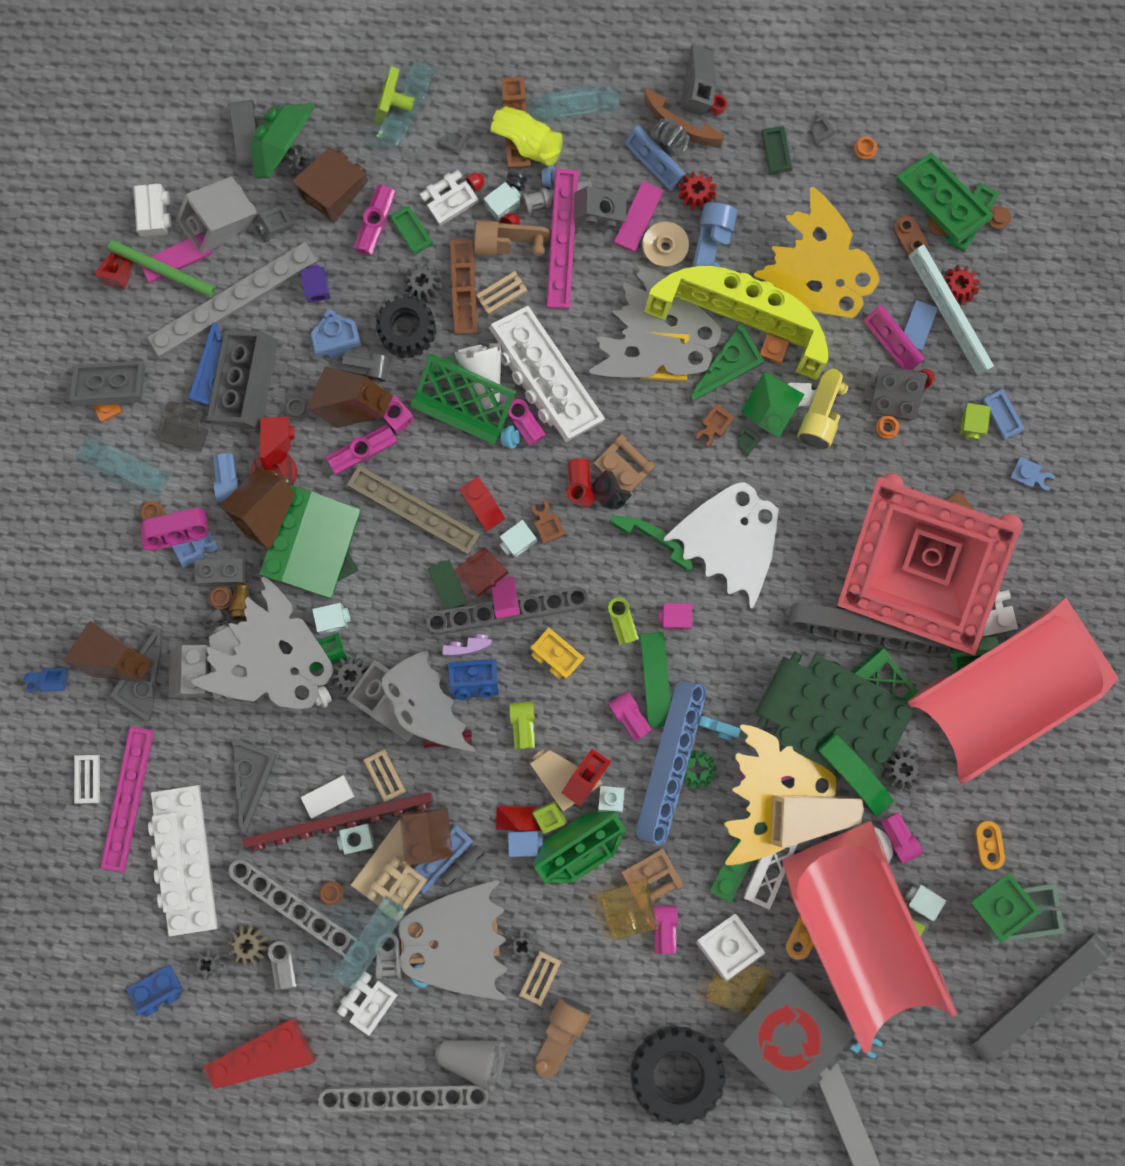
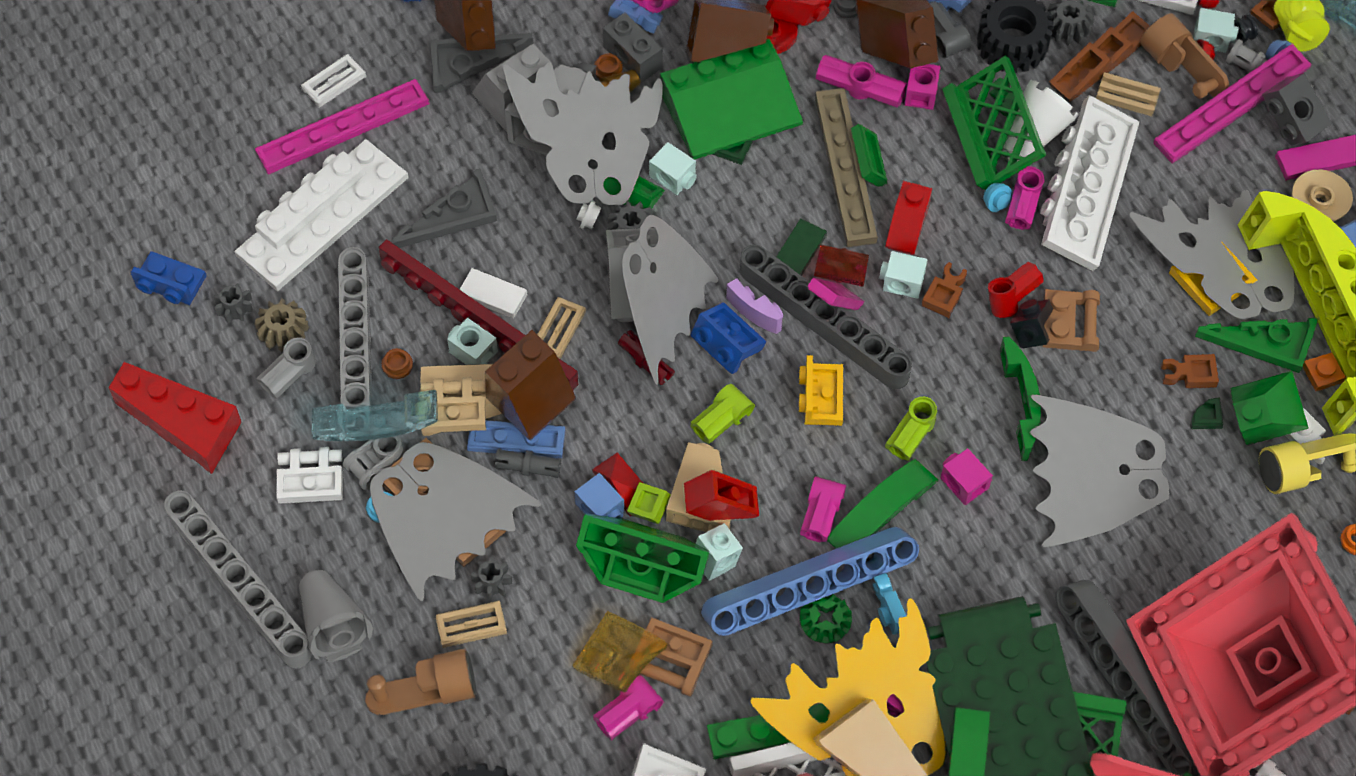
camera: 45 degrees right, 20 degrees down
(418, 490) = (869, 155): none -> green tile

